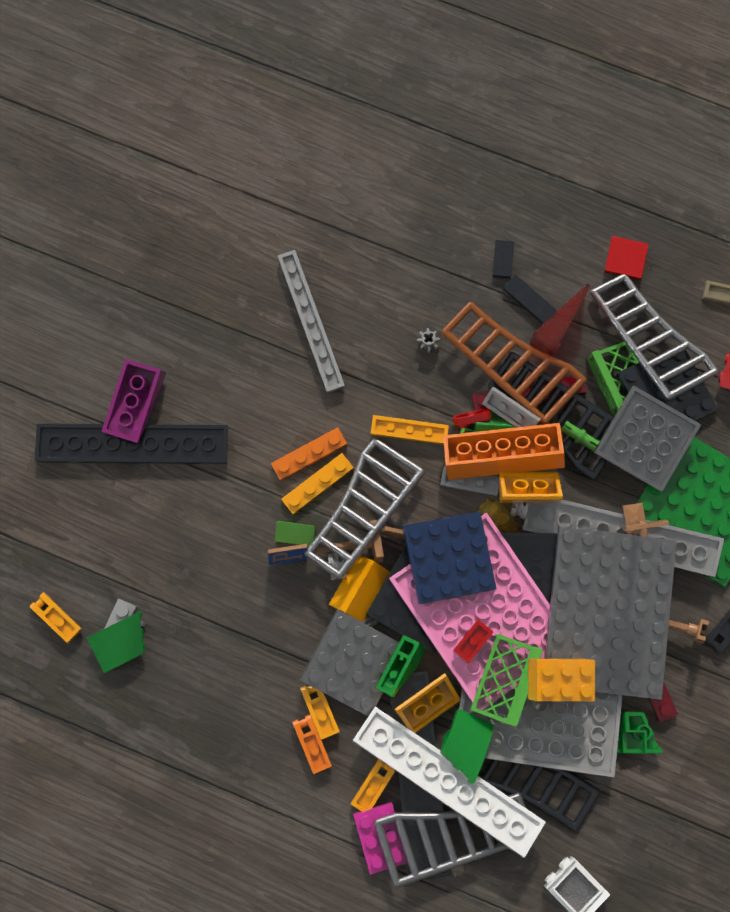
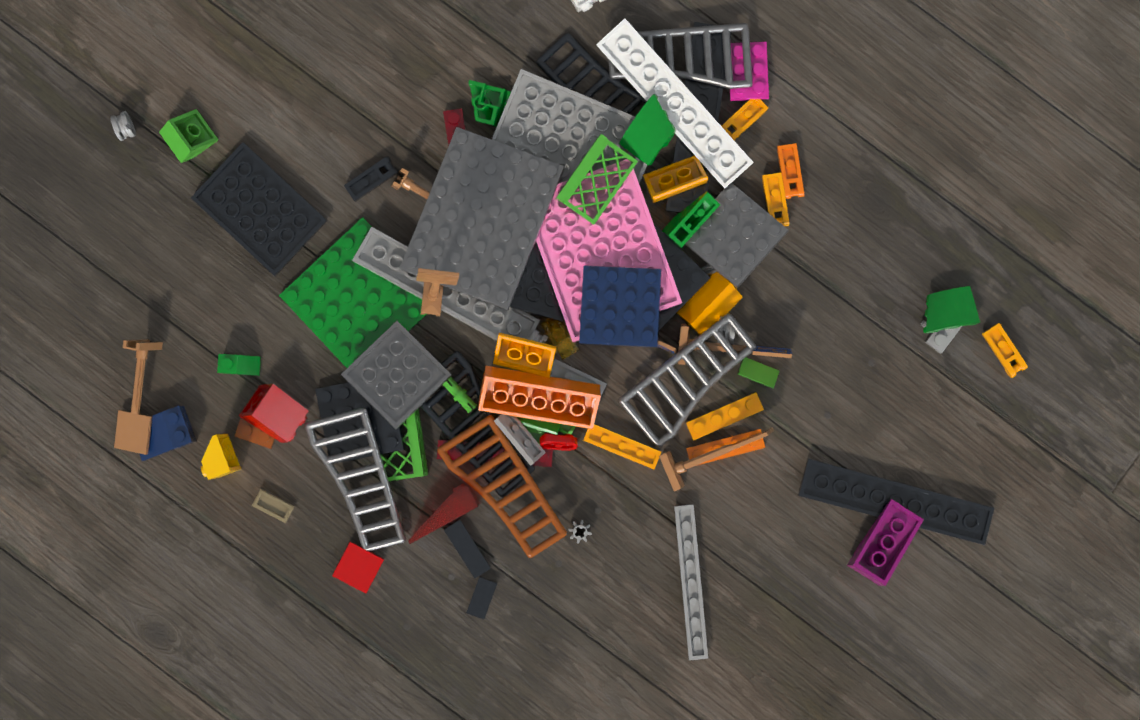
camera: 165 degrees left, 10 degrees up
(353, 419) = (674, 469): none -> medium nougat piece
(473, 641) = (619, 222): red plate -> none
(561, 679) = (548, 164): light orange brick -> none

